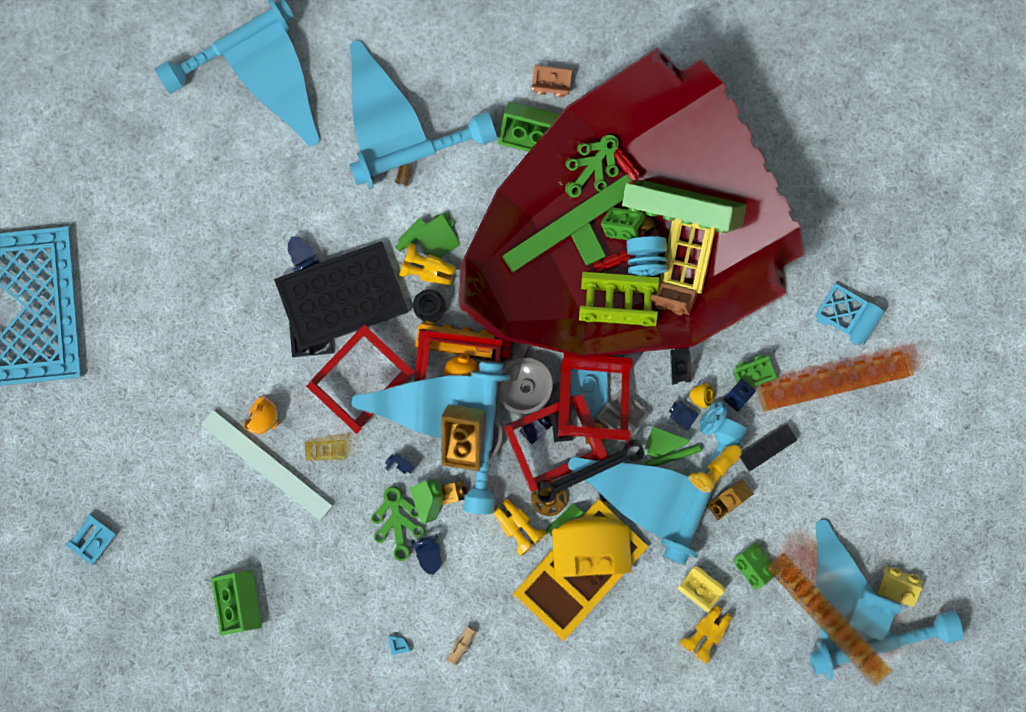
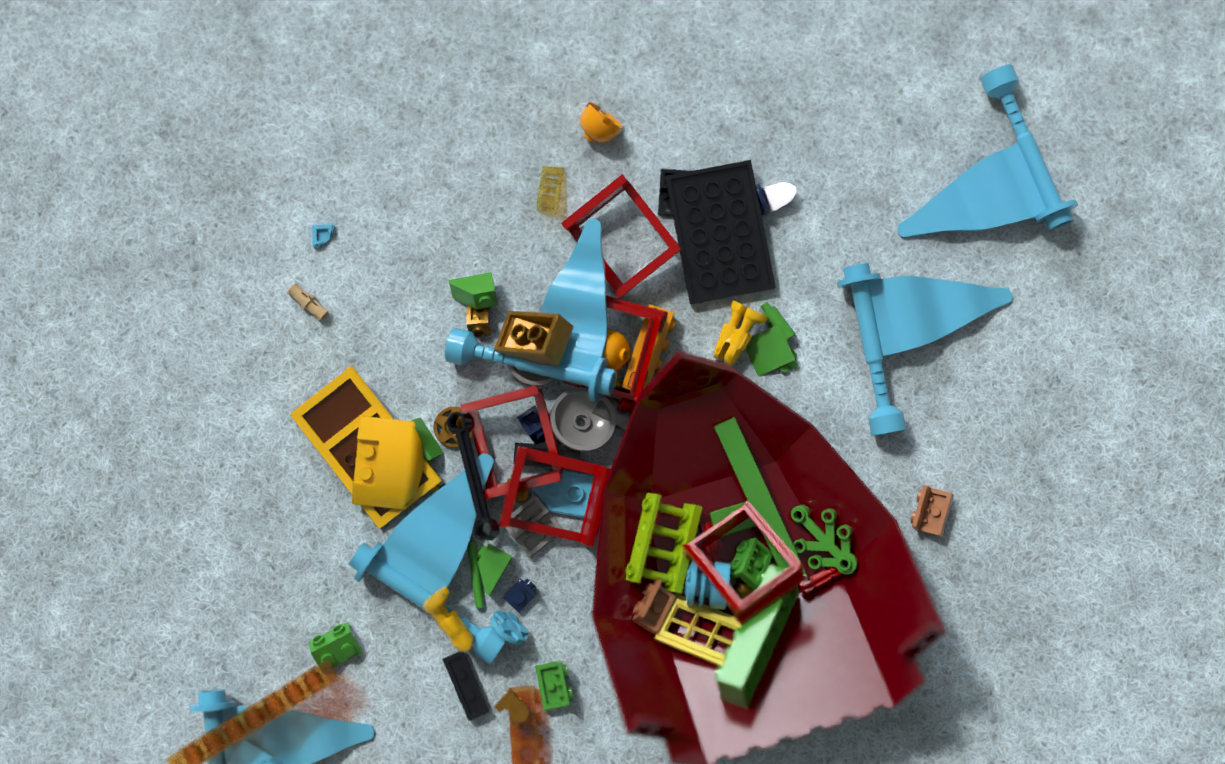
camera: 95 degrees right, 0 degrees up
(236, 602) = (399, 66): bright green slope -> none
(266, 465) = (545, 123): light aqua tile -> none
(396, 520) = (459, 254): bright green plant -> none
(400, 170) = (846, 328): pearl gold piece -> none
(403, 465) = (518, 270): dark blue bracket -> none
(425, 296) = (693, 317): black piece -> none
(428, 554) = (415, 282): dark blue piece -> none
(517, 520) = (433, 384): yellow piece -> none
(524, 126) = (883, 469): bright green slope -> none
(644, 196) = (764, 595): none -> red piece
(680, 365) = (575, 599): black plate -> none
(701, 588) = (320, 580): light yellow bracket -> none
(702, 395) = (538, 620): yellow cone -> none
(710, 629) = (273, 583): yellow piece -> none
(730, 499) = (414, 631): pearl gold slope -> none
(739, 395) = (531, 663): dark blue bracket -> none
(778, 400) = (514, 705): none -> pearl gold leg

